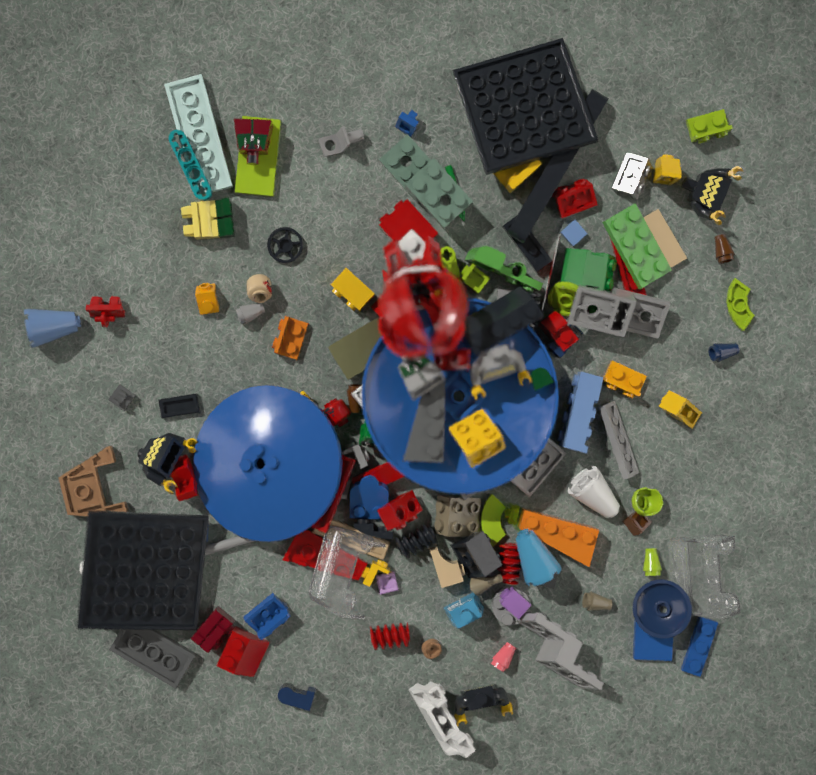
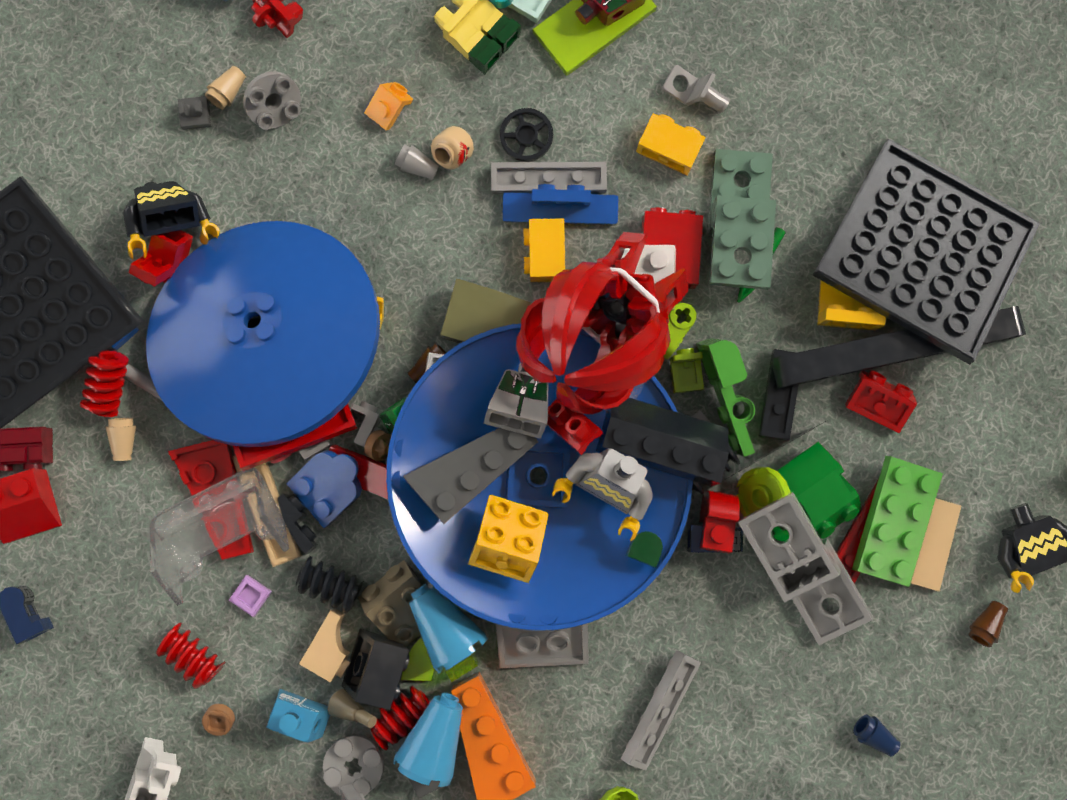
camera: 45 degrees right, 5 degrees down
(83, 487) = (55, 158): medium nougat wing -> none
(124, 371) = (225, 88): none -> tan cone
(153, 354) = (272, 100): none -> light grey plate
(179, 405) = (242, 181): black tile -> none
(221, 560) = (104, 383): none -> red piece
(254, 576) = (121, 437): none -> tan cone
(267, 616) = (87, 494): blue bracket -> none
(290, 337) = (429, 231): orange bracket -> none
(317, 254) = (525, 176): none -> light grey plate
(337, 412) = (393, 358): red head -> none
(341, 259) = (573, 205): none -> blue bracket
(356, 179) = (670, 143): none -> yellow brick
(370, 572) = (242, 564): yellow bracket -> none
(373, 457) = (377, 445): none -> medium nougat tile
(400, 510) = (345, 531): red brick -> none
(407, 123) = (784, 141): blue tile -> none
(489, 506) = (444, 628): none -> dark azure cone
(514, 602) = (359, 766): medium lavender brick -> none
(573, 233) = (842, 436): medium blue tile -> none
(580, 411) = (651, 634): medium blue wedge -> none
(593, 491) = (574, 739): white cone -> none
(624, 379) = (735, 650): light orange bracket -> none
(633, 175) = (969, 442): bracket -> none
(667, 170) = (1013, 474): yellow slope -> none
(680, 408) = (764, 748): yellow slope -> none
(737, 304) = (944, 701): lime tile -> none

